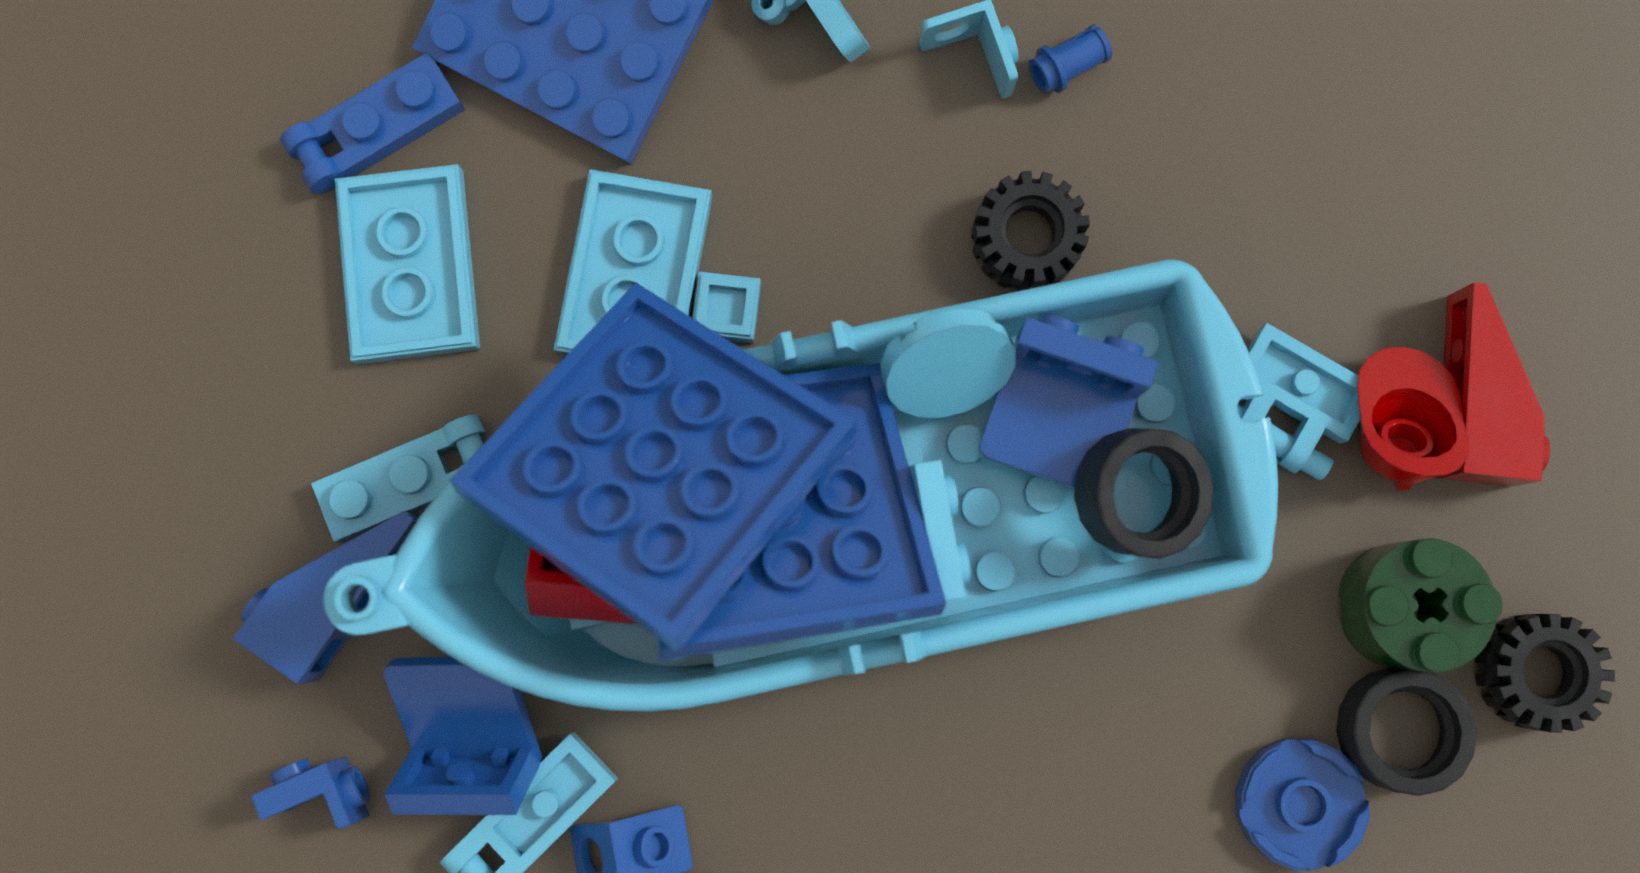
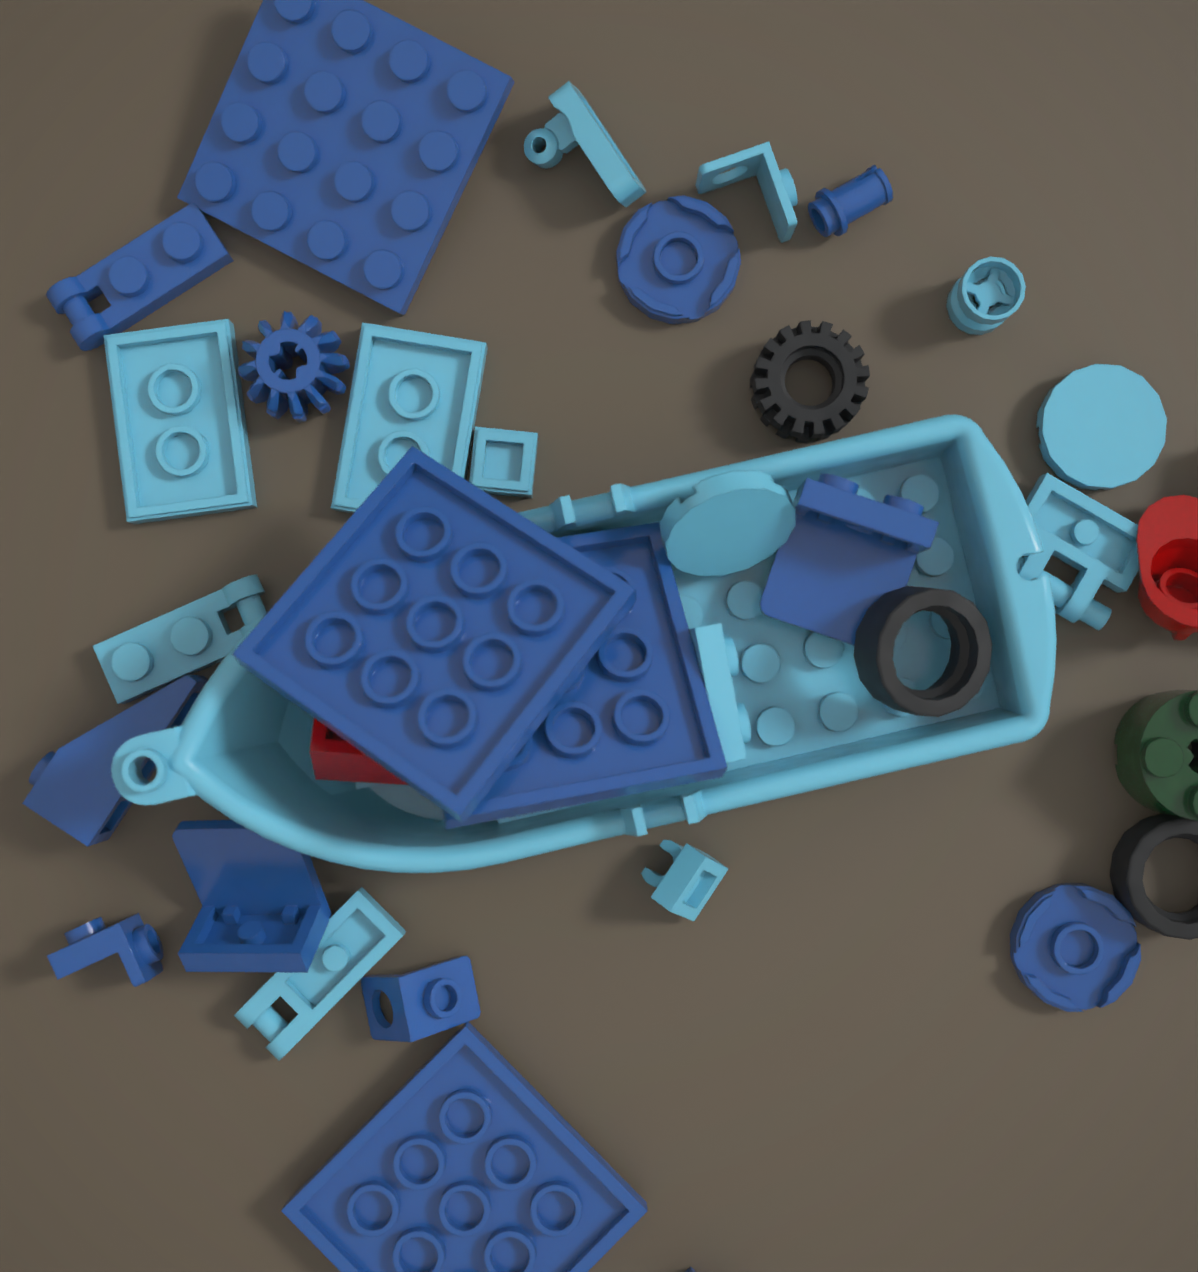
camera: 10 degrees left, 5 degrees up
(504, 198) = (276, 355): none -> blue gear
(901, 113) = (678, 260): none -> blue tile
(905, 730) = (688, 880): none -> medium azure tile
(1211, 138) = (994, 285): none -> medium azure wheel
(1320, 280) = (1101, 427): none -> medium azure tile

